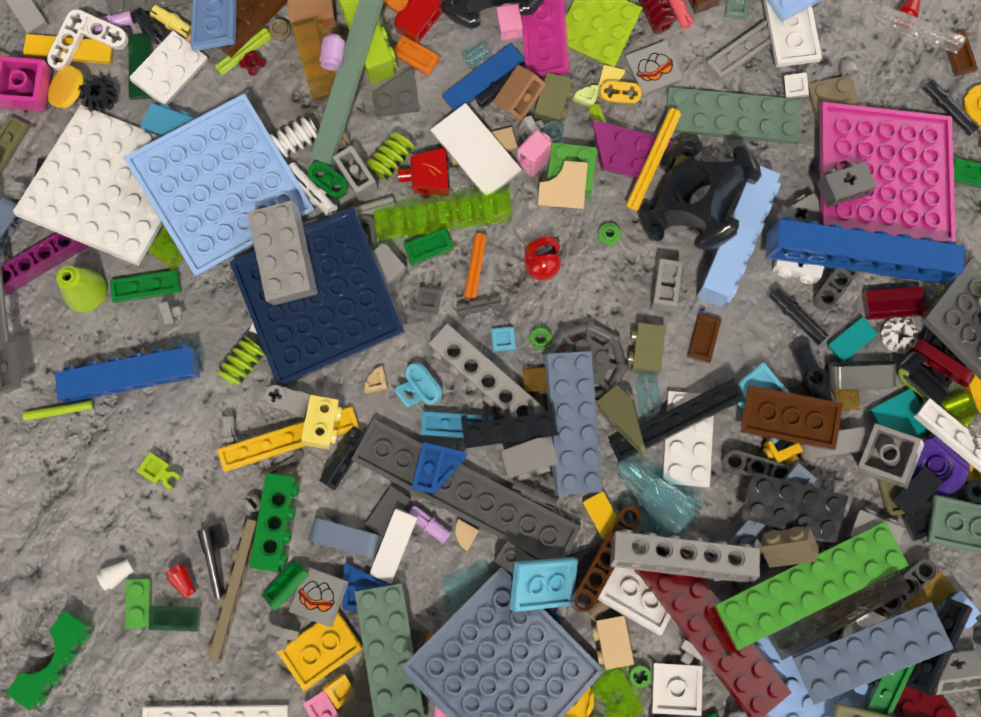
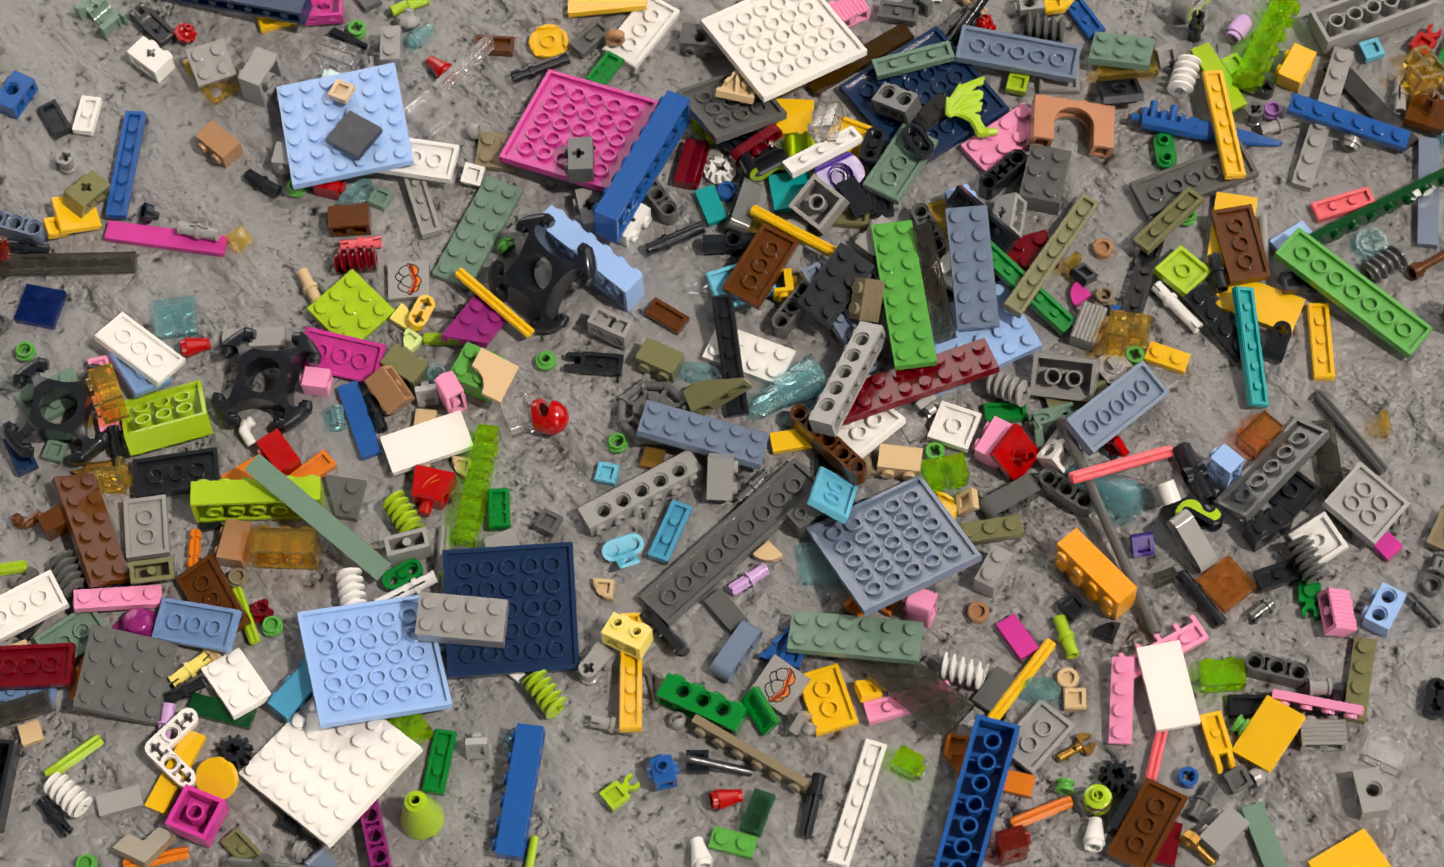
camera: 70 degrees left, 15 degrees down
(180, 508) = (663, 772): none -> blue brick
(198, 672) = (812, 805): none -> black axle
(239, 79) = (272, 626): none -> bright green plate
(332, 52) = (294, 520): lavender brick -> none
(393, 545) = (757, 611): white tile -> none
(435, 467) = (701, 554): blue wing -> none
(465, 191) = (461, 465): none -> tan tile
(475, 266) = (531, 476): orange axle -> none
(478, 305) = (568, 484): dark grey axle -> none
(510, 428) = (690, 483): black hinge -> none
(623, 286) = (595, 363): none -> black hinge
(630, 119) = (448, 313): none -> clear smoke bar
(726, 147) = (505, 244): none -> bright green plate
(847, 438) = (792, 230): none -> yellow axle
(875, 350) = (726, 191): none -> blue tile

